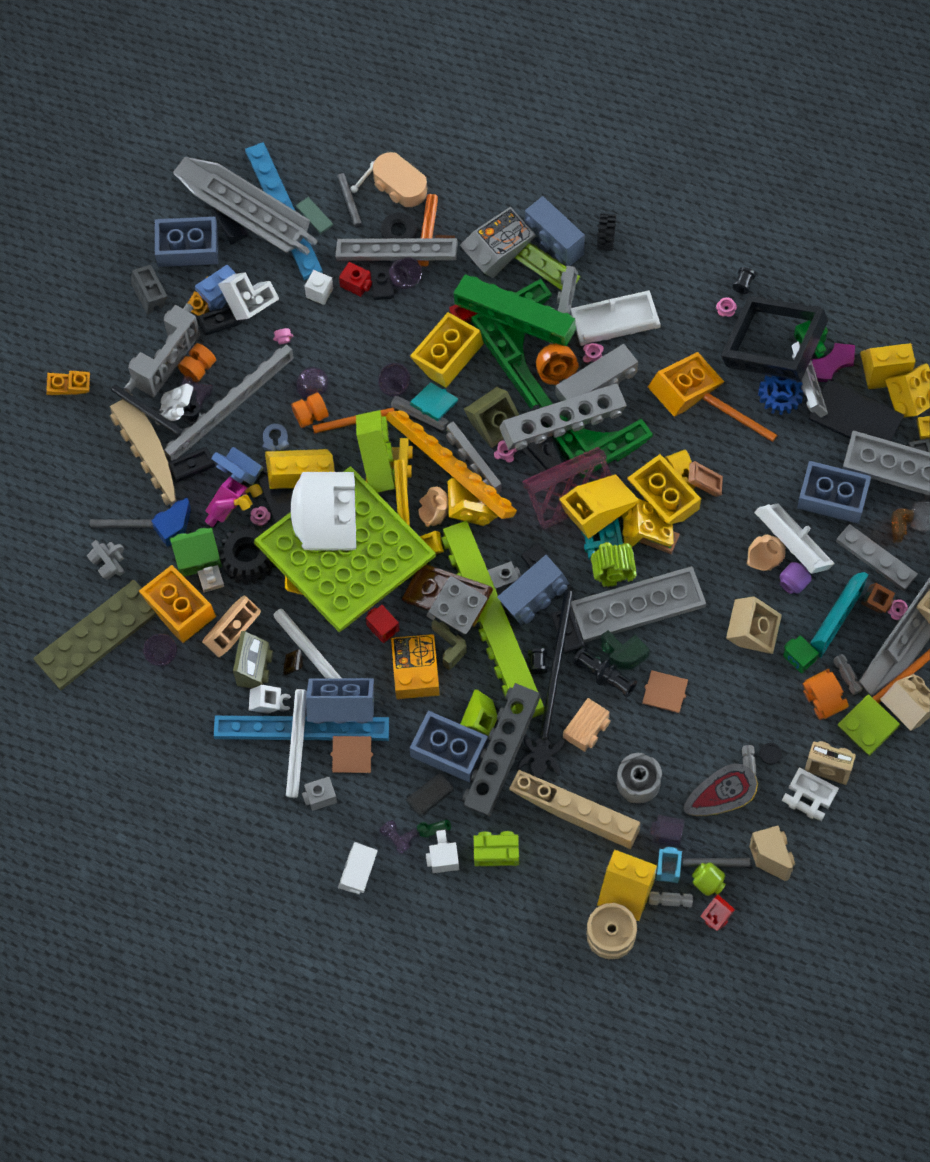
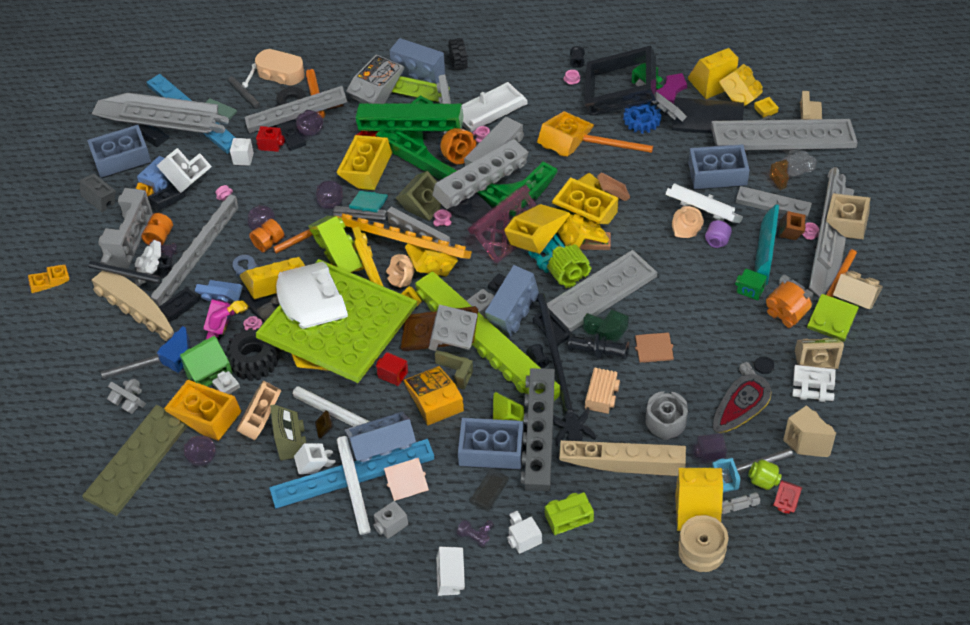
camera: 20 degrees left, 15 degrees down
(429, 830) = (500, 518): dark green arm -> none
(753, 625) = (702, 275): tan slope -> none

